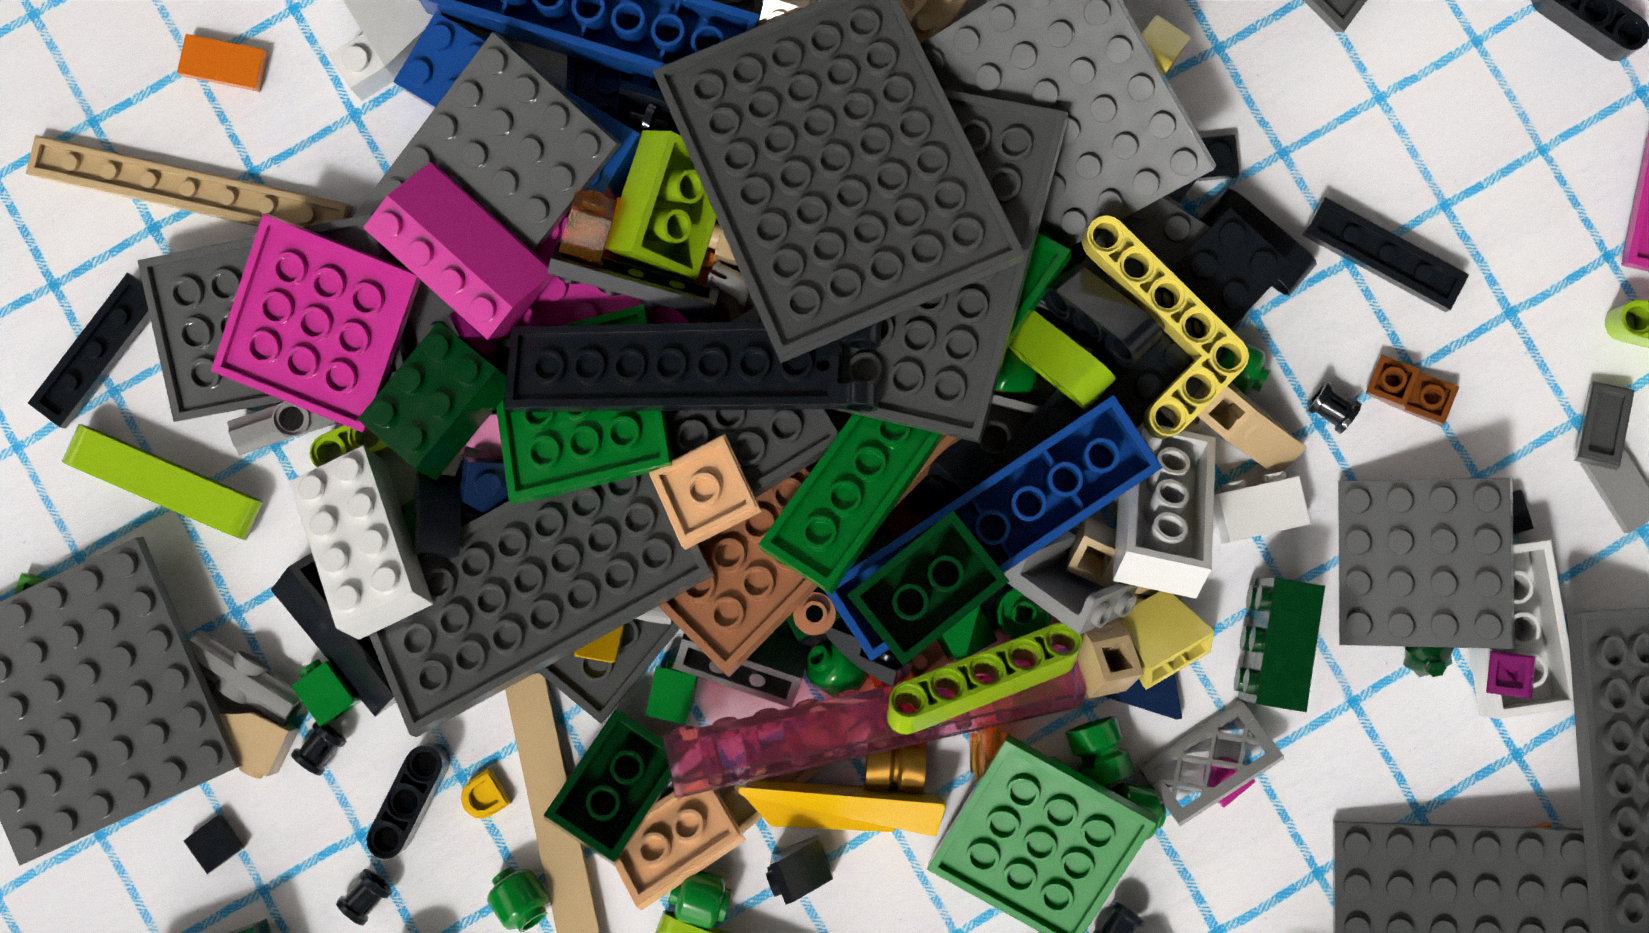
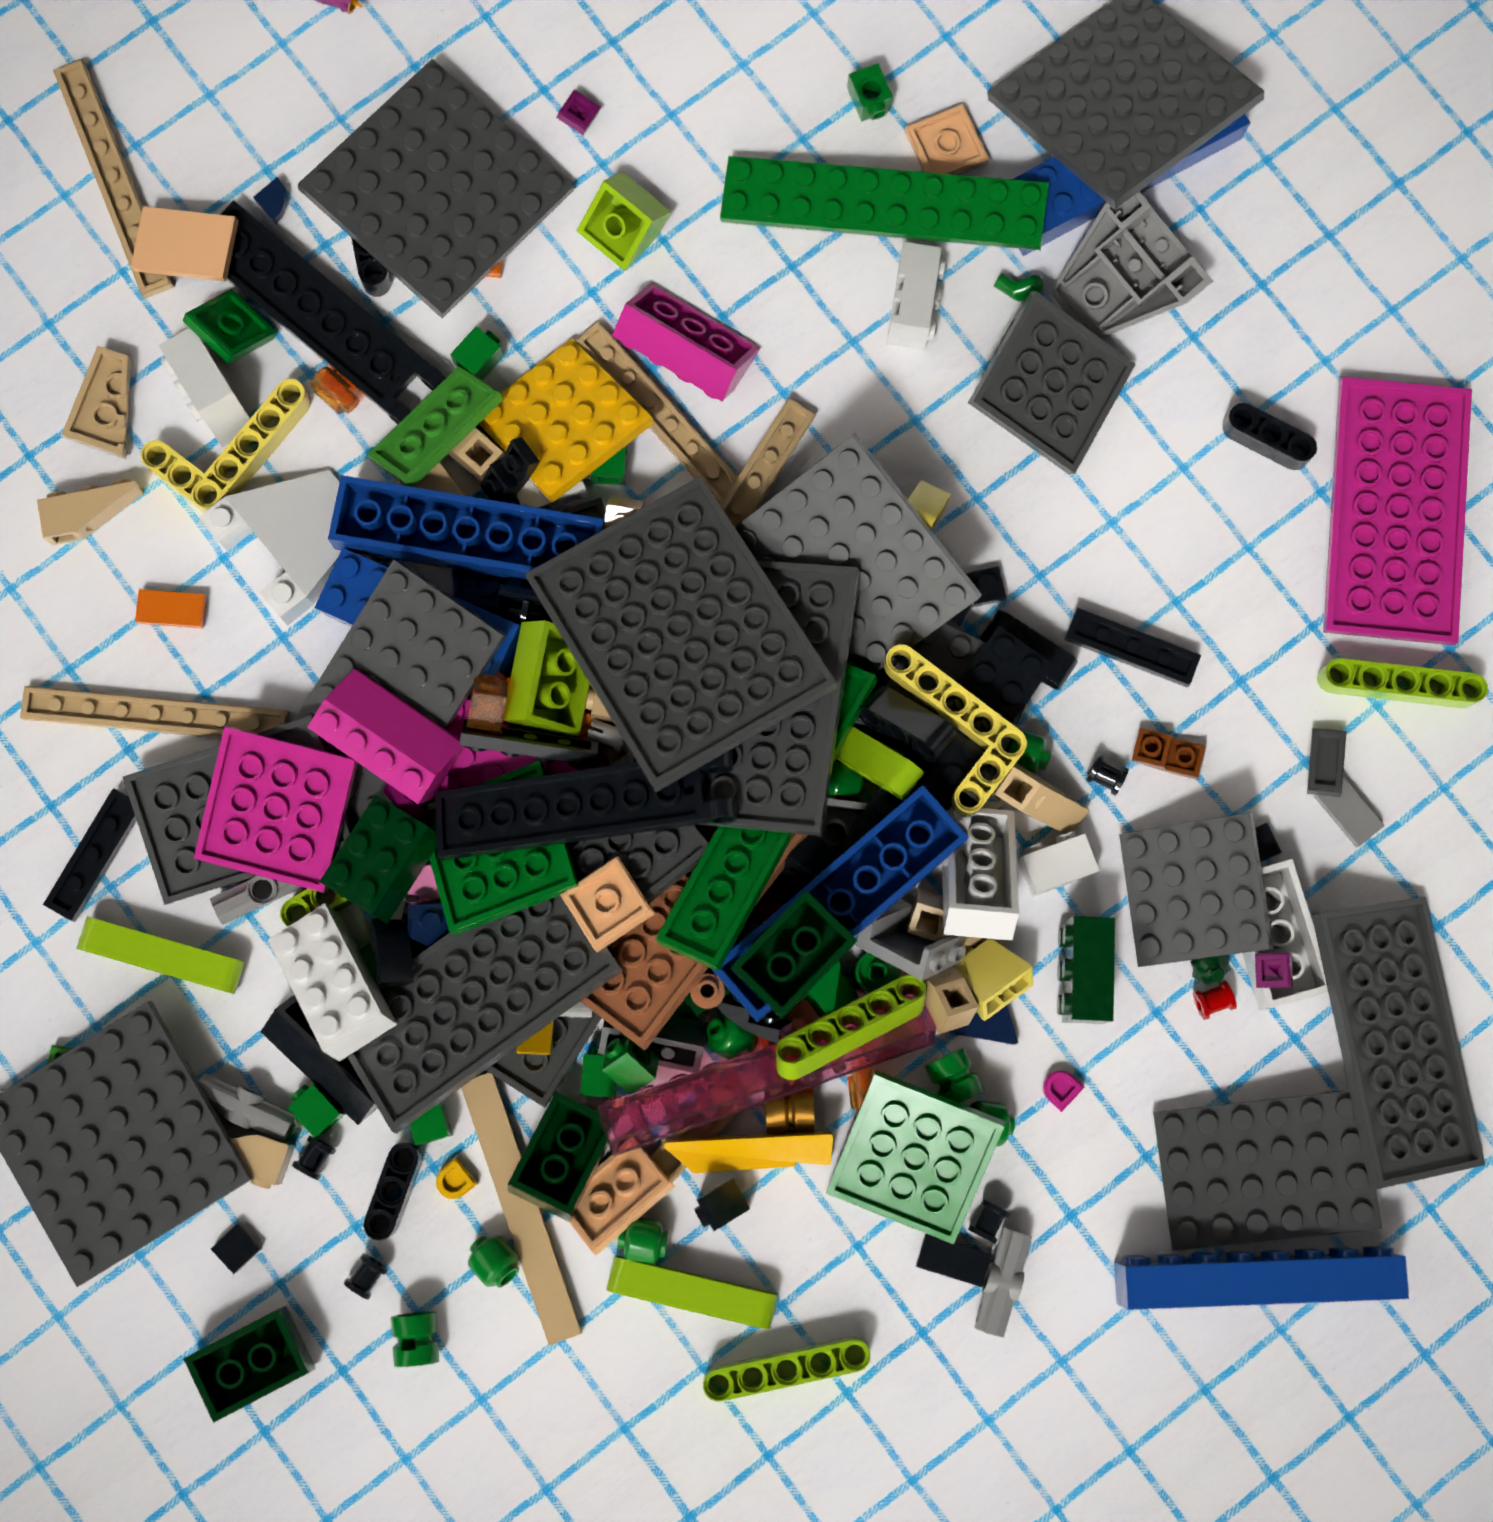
camera: 10 degrees left, 5 degrees down
(464, 729) = (431, 1125): none -> green brick
(709, 690) = (630, 1064): none -> green brick
(1210, 795) = (1048, 1102): light grey window -> none
(1427, 697) = (1214, 1000): none -> red bush

